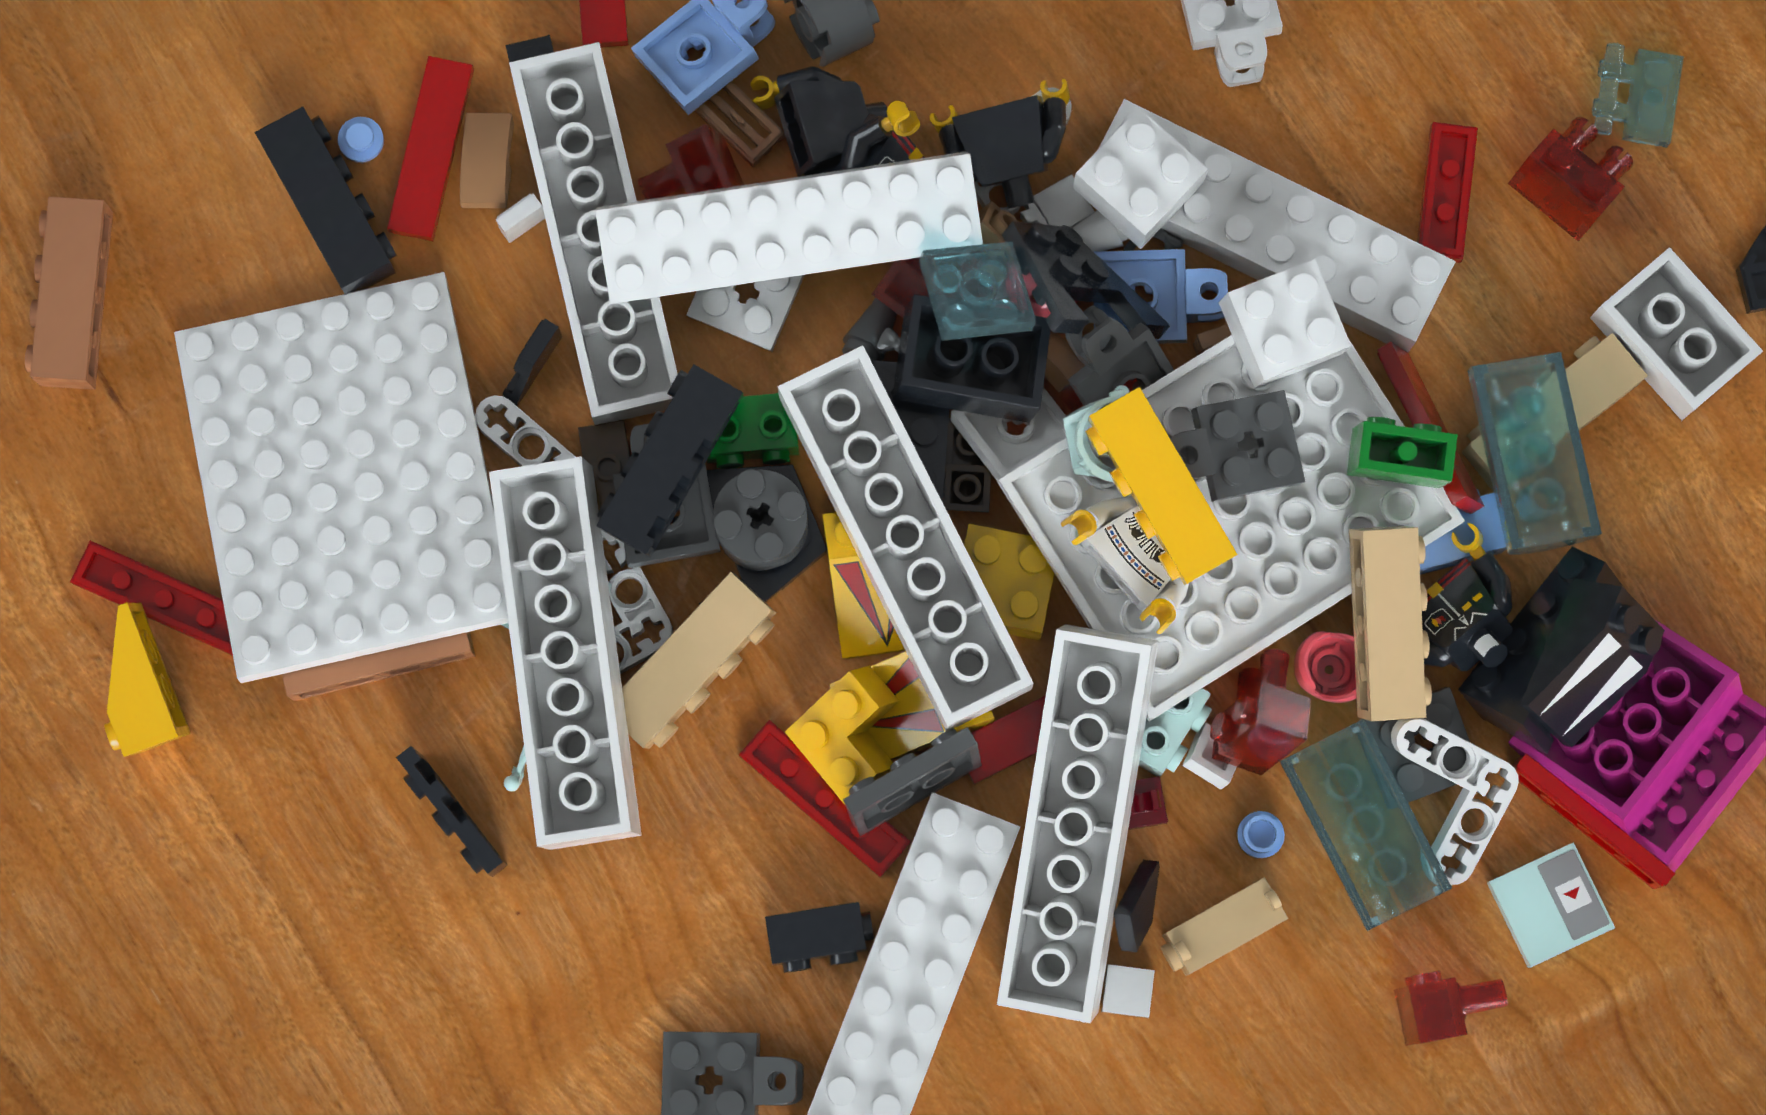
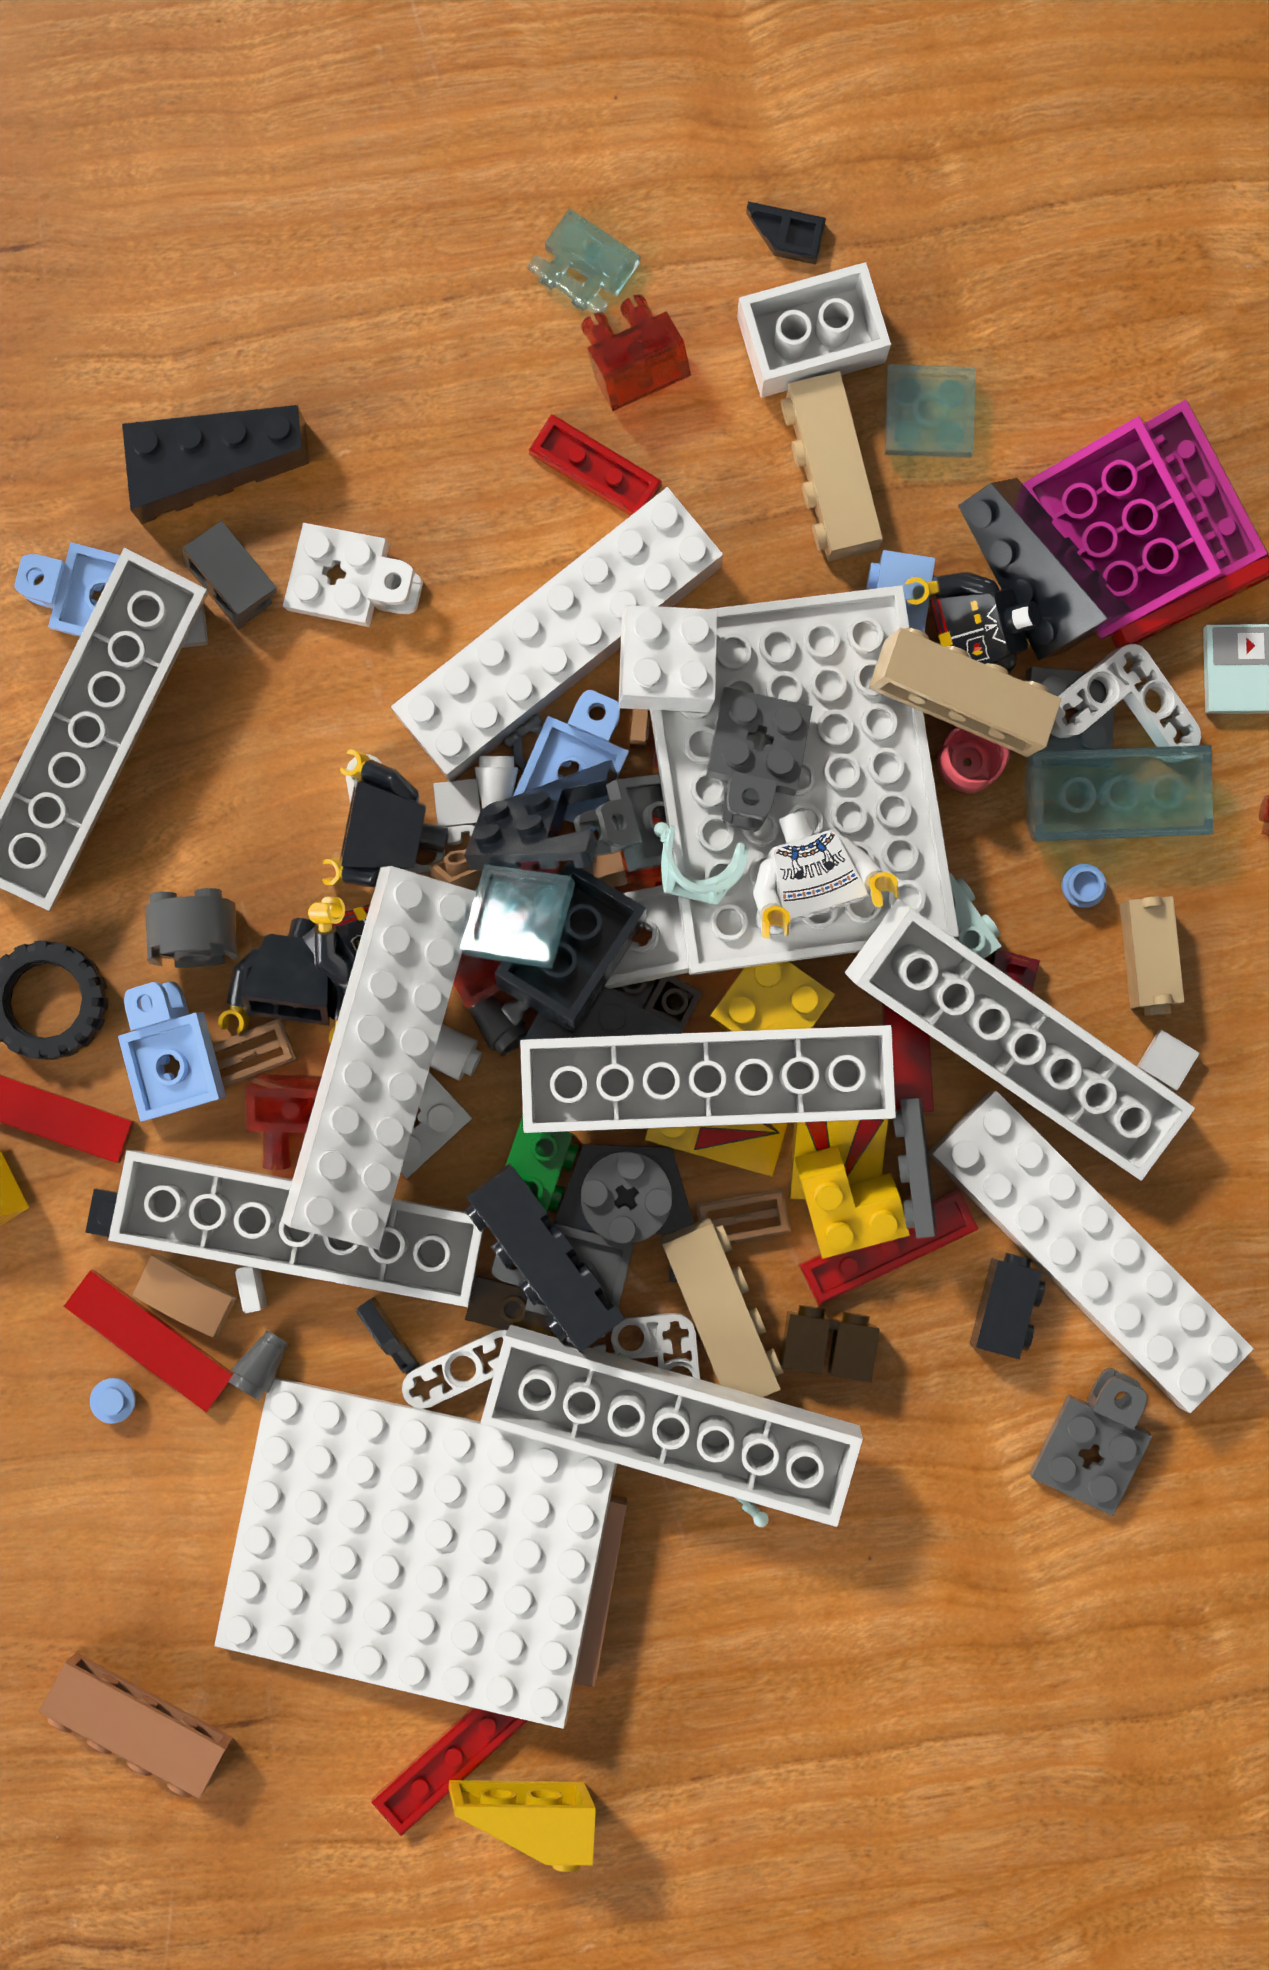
camera: 65 degrees left, 5 degrees up
(325, 201) = (156, 1457): black brick -> none
(450, 813) = (761, 1583): black wing -> none
(451, 257) = (259, 1366): none -> dark grey cone
(702, 756) = (851, 1347): none -> dark brown piece
(812, 681) = (780, 1210): none -> medium nougat tile
(824, 301) = (455, 1053): none -> white brick
(1136, 907) = (1101, 1019): black tile -> none
(1139, 177) = (474, 724): white brick -> none
(1161, 486) = (772, 834): yellow brick -> none
(1200, 760) = (1001, 895): white plate -> none
(1263, 720) = (993, 838): clear red brick -> none
(1402, 453) = (828, 611): green brick -> none
(1422, 410) = (803, 577): red tile -> none
(1534, 453) = (872, 497): clear light blue brick -> none
(1590, 659) = (1072, 532): black slope -> none
(1654, 482) = (929, 411): none -> clear light blue plate

